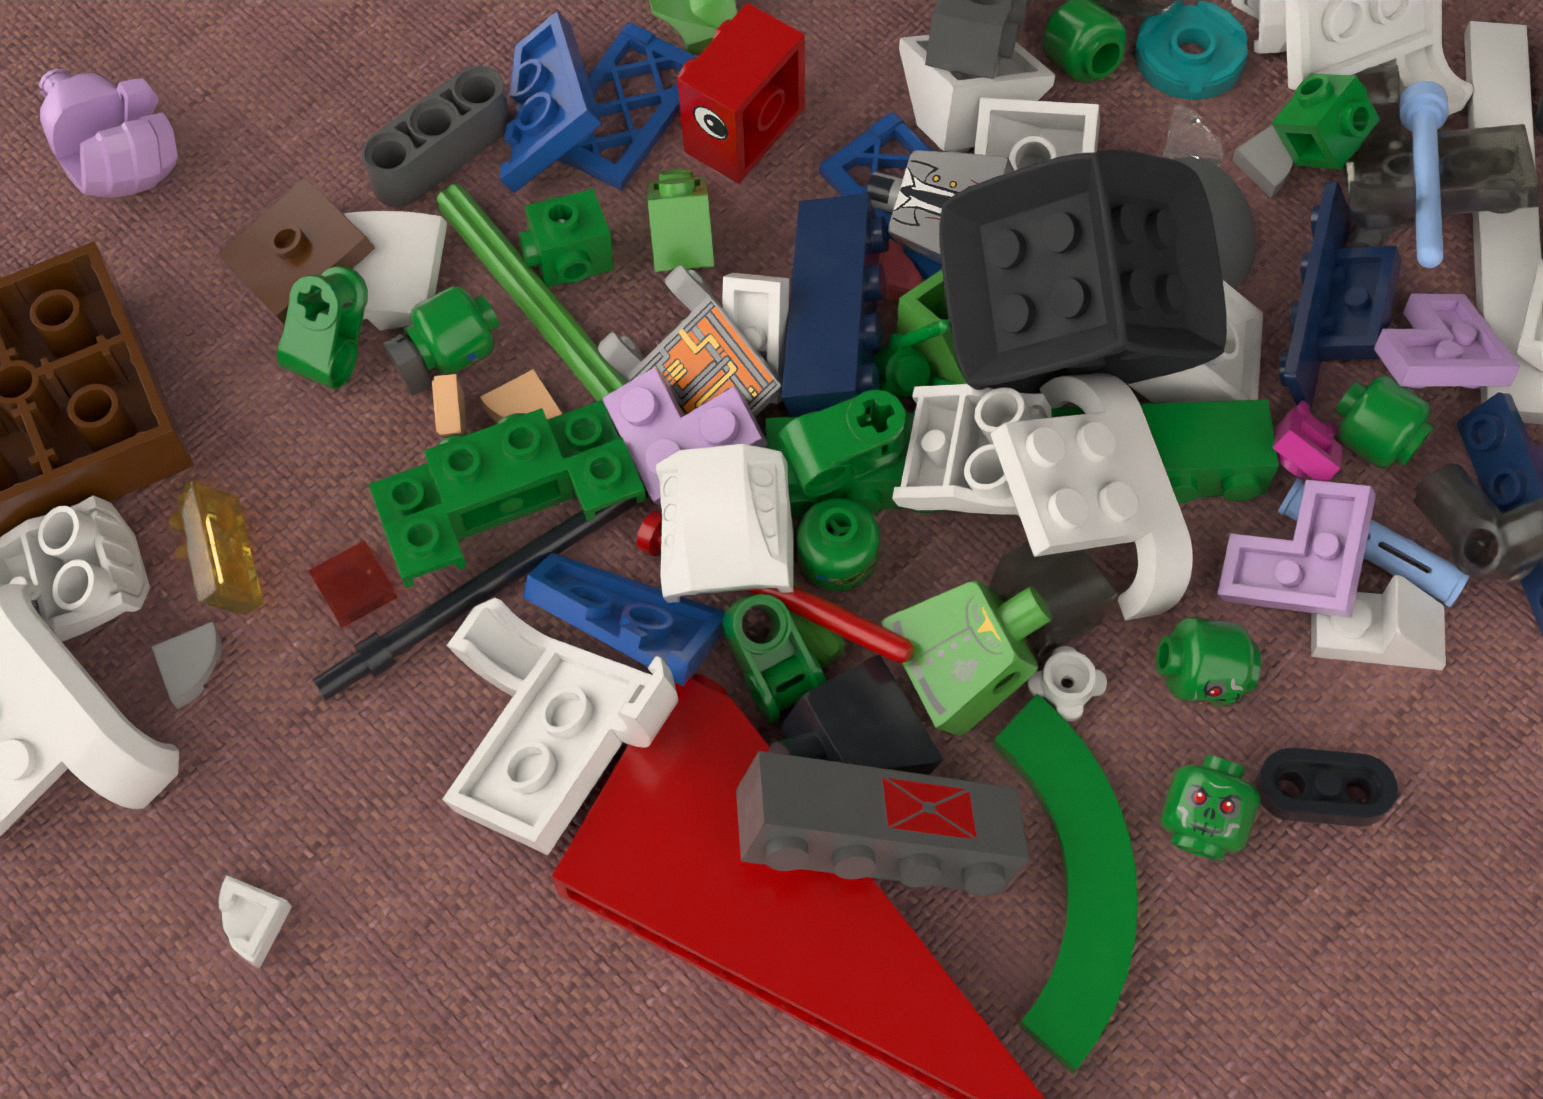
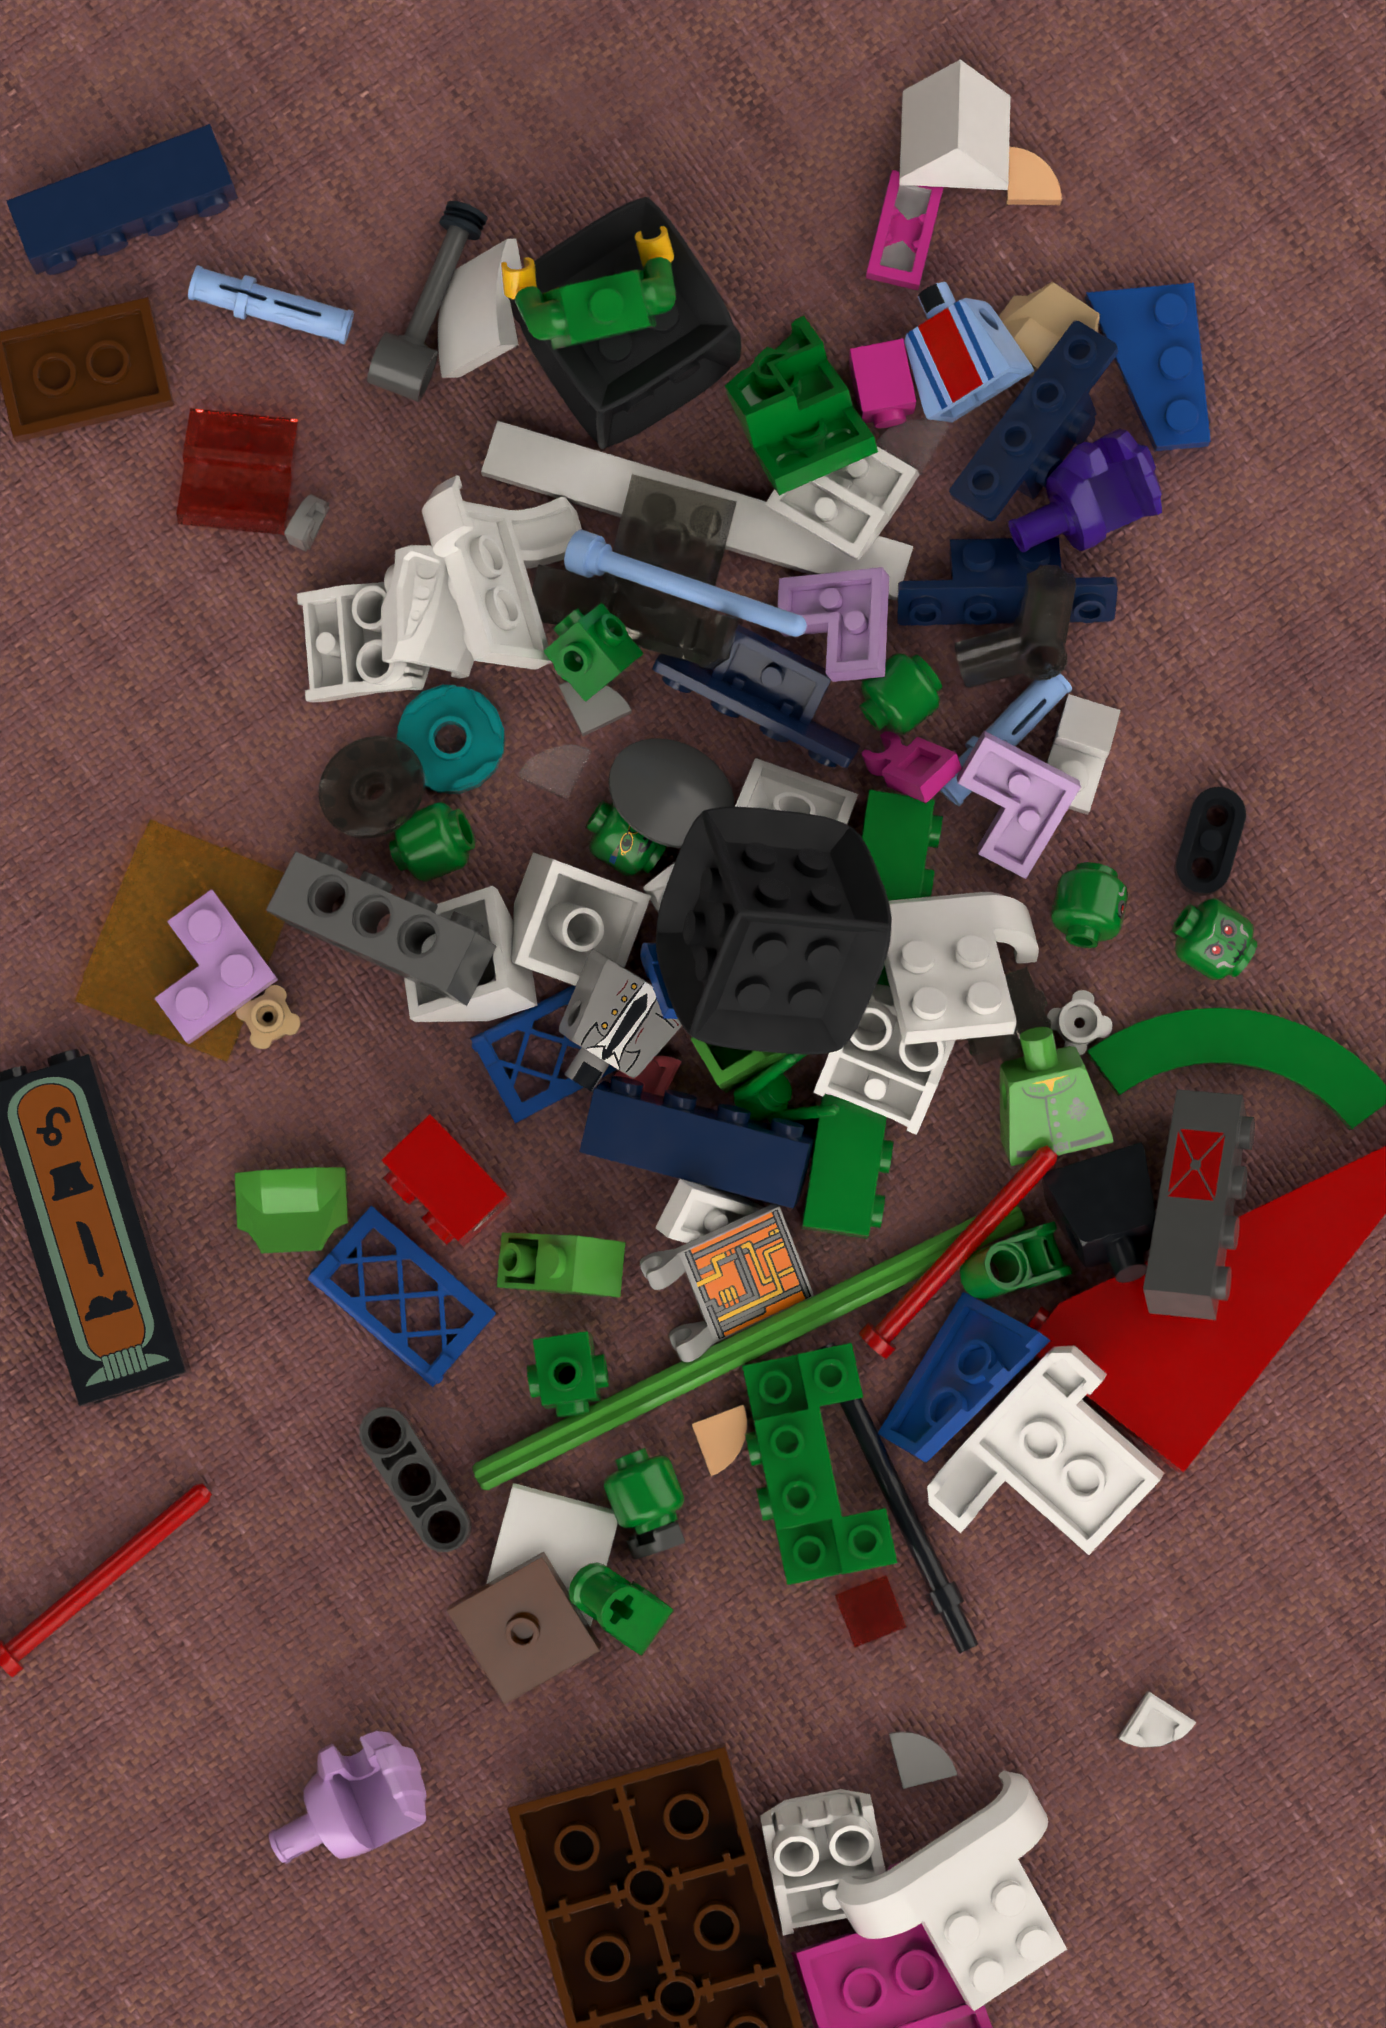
camera: 80 degrees left, 20 degrees up
(217, 549) = (823, 1721): clear yellow plate -> none
(449, 405) = (724, 1504): light nougat tile -> none
(552, 101) = (404, 1364): blue wing -> none
(656, 427) = (814, 1310): lavender plate -> none
(725, 521) = (910, 1280): white slope -> none
(838, 544) = (909, 1195): green head -> none
(841, 441) = (861, 1175): green piece -> none

